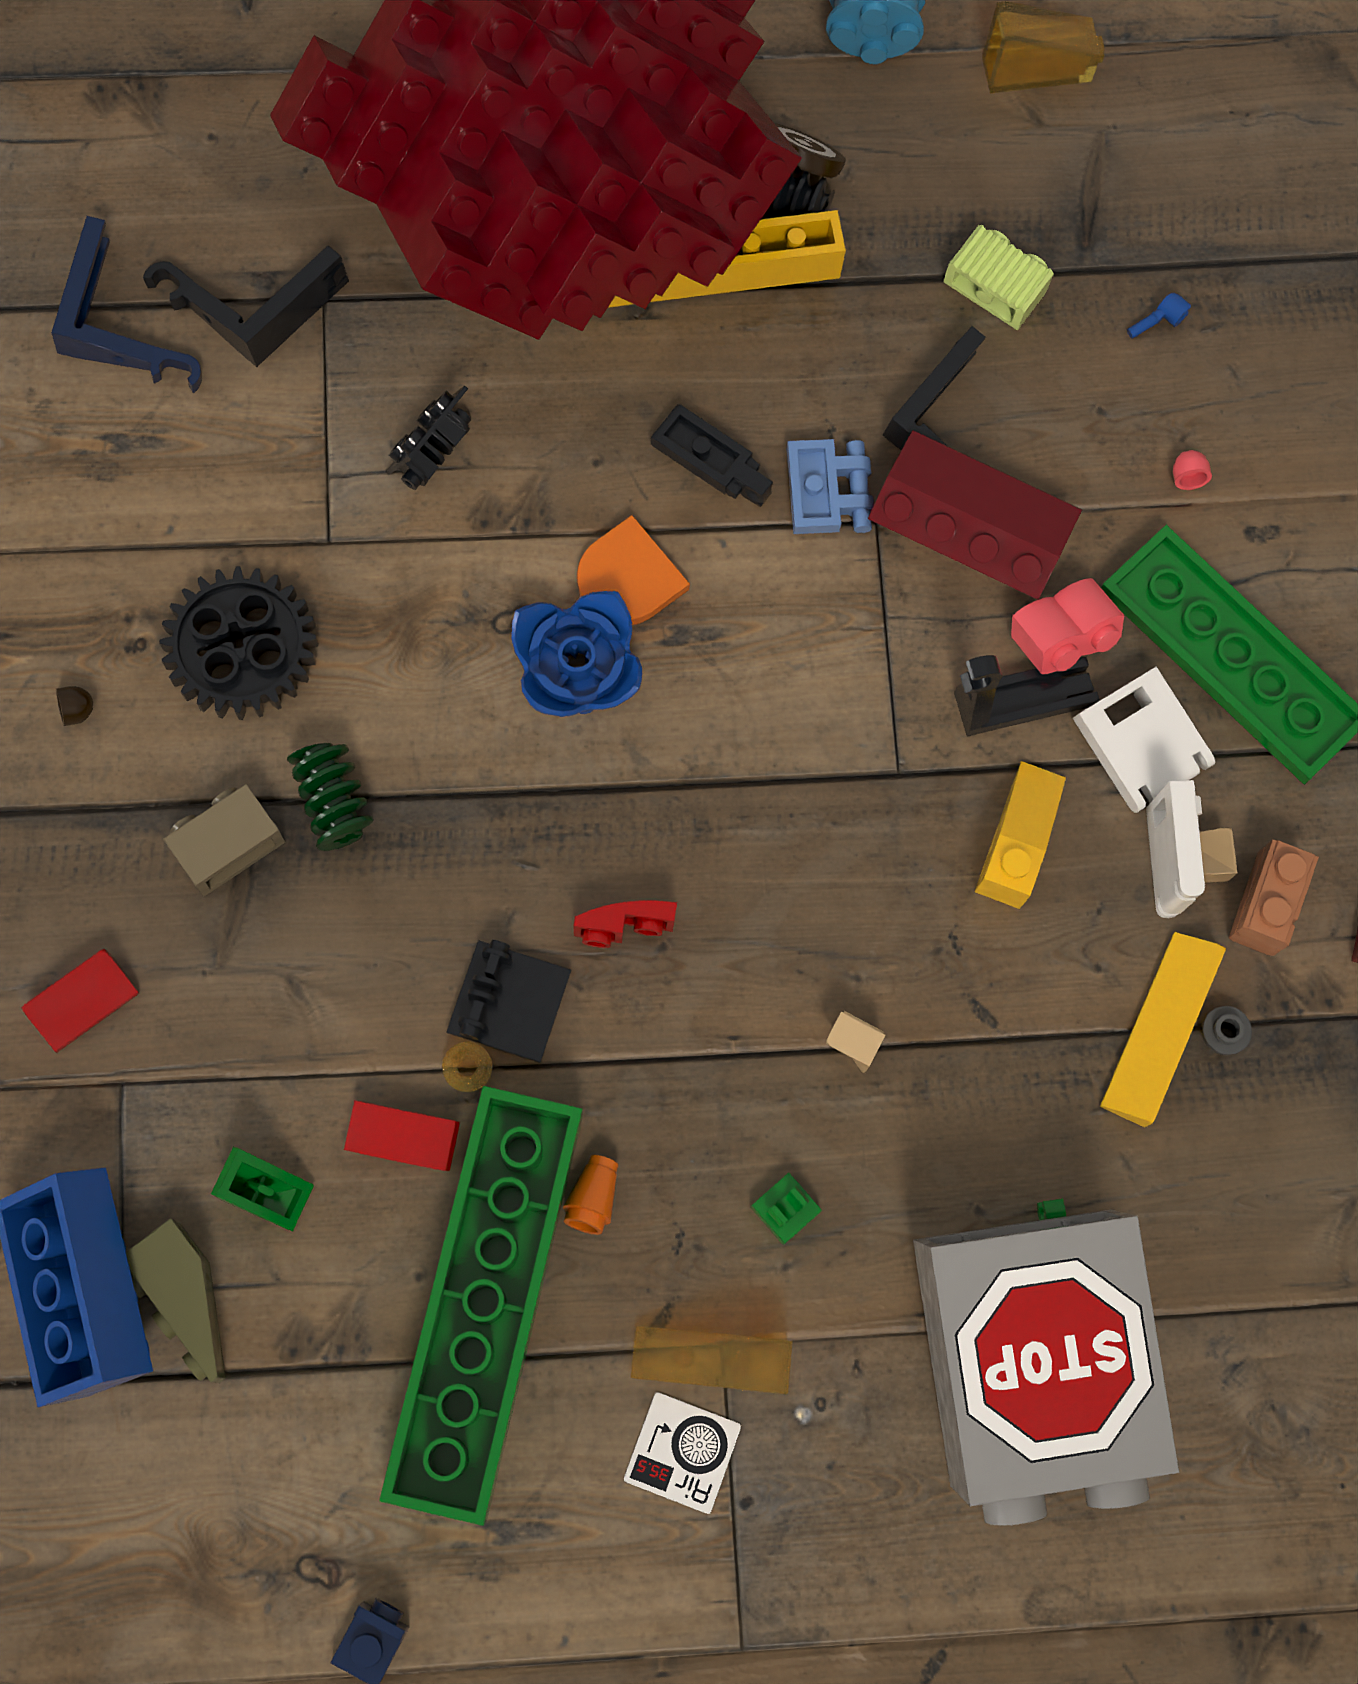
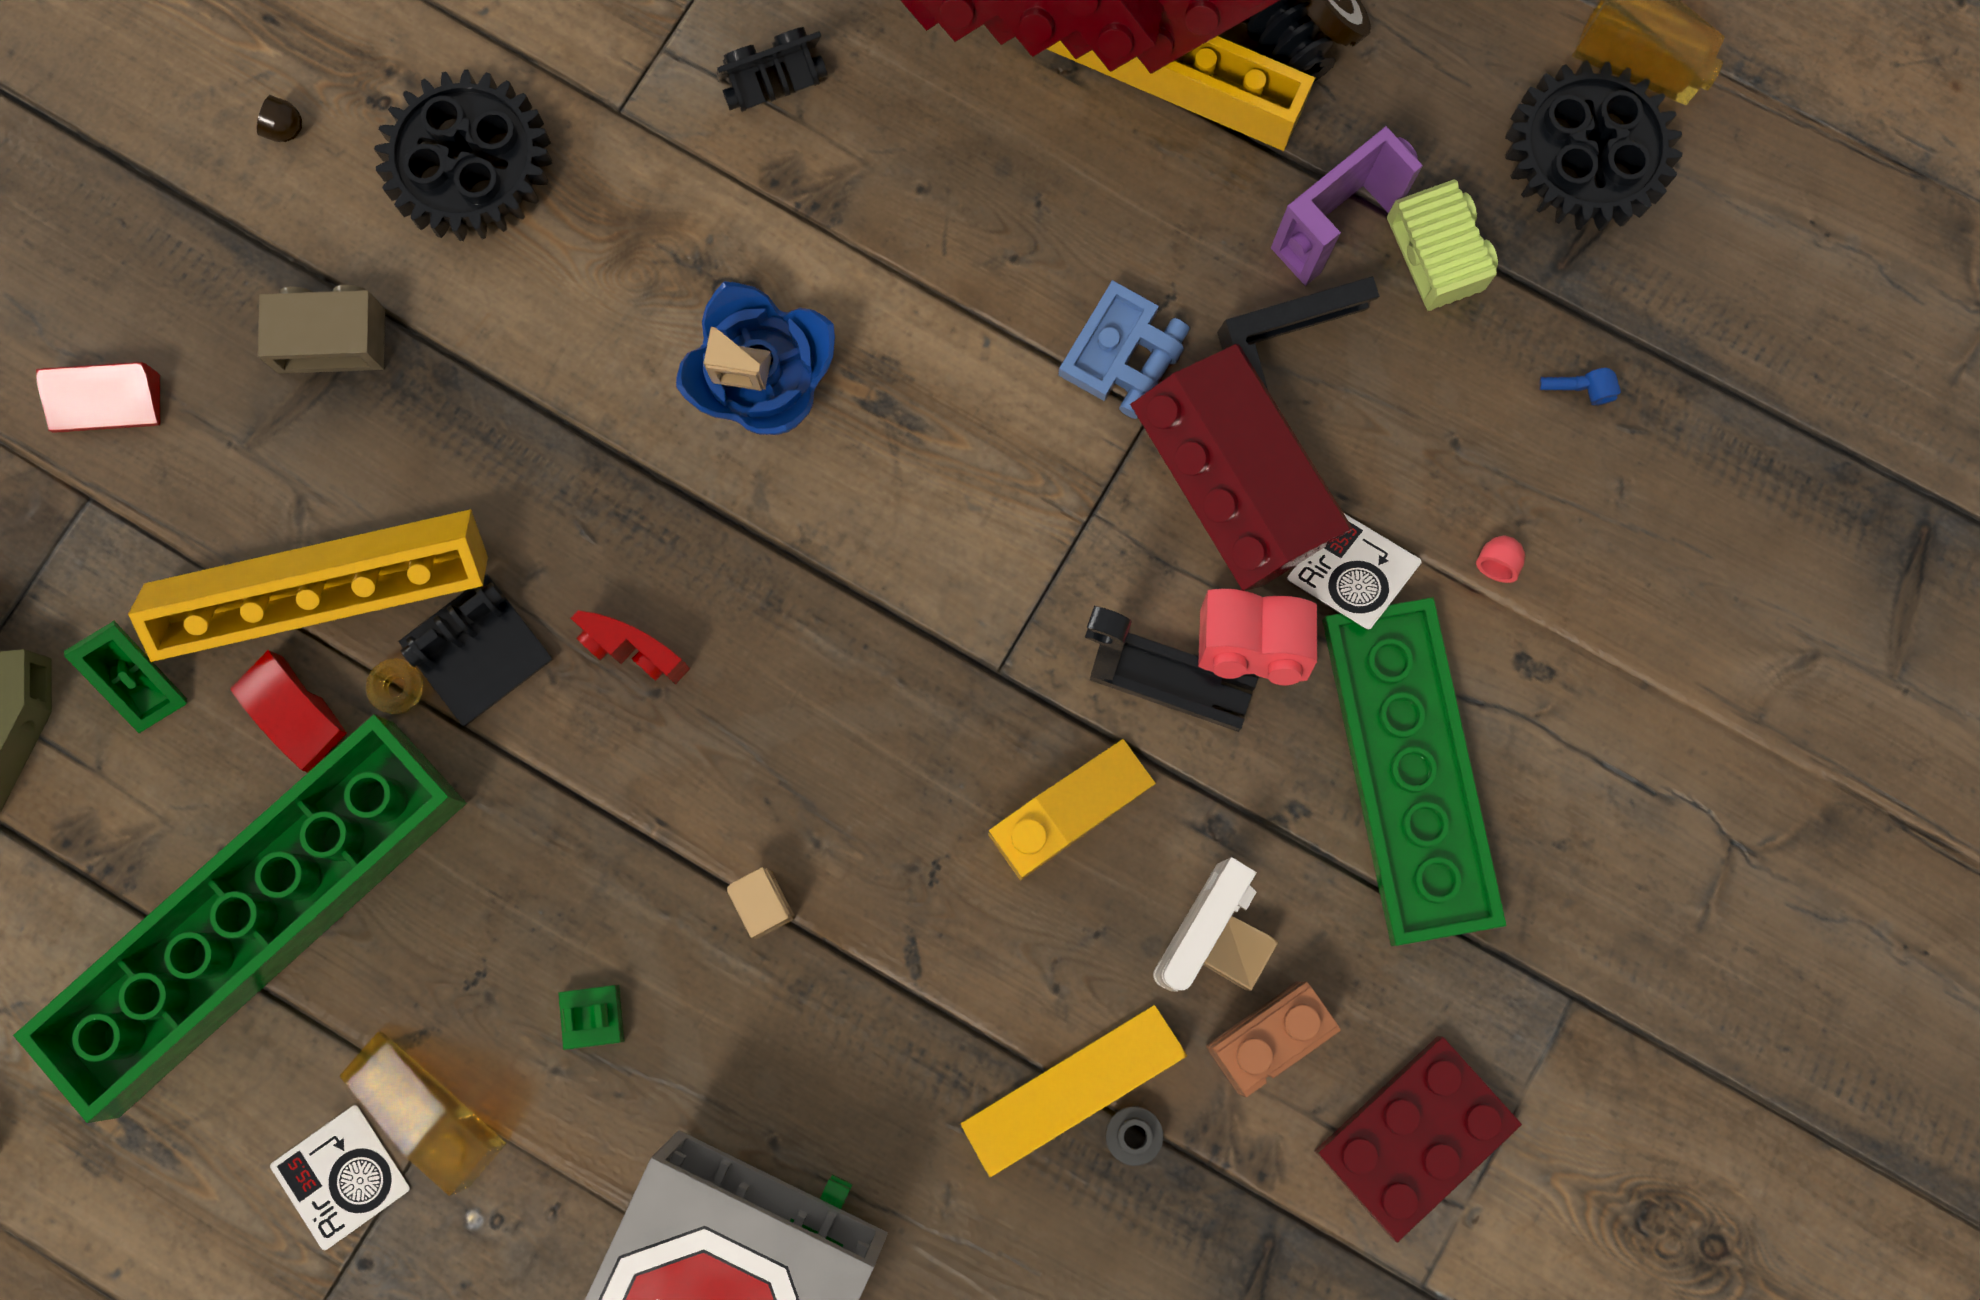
camera: 40 degrees right, 5 degrees up
(329, 794) = (442, 349): dark green piece -> none
(357, 1029) = (309, 585): none -> yellow brick
(569, 663) = (735, 364): none -> tan slope
(592, 1197) = (419, 884): orange cone -> none
(634, 567) = (872, 315): orange tile -> none
(711, 455) = (1029, 248): black hinge -> none
(907, 318) = (1307, 237): none -> medium lavender panel
(1052, 146) = (1638, 143): none -> black gear
(1103, 542) = (1356, 574): none -> white sticker
(1148, 746) = (1259, 806): white container -> none

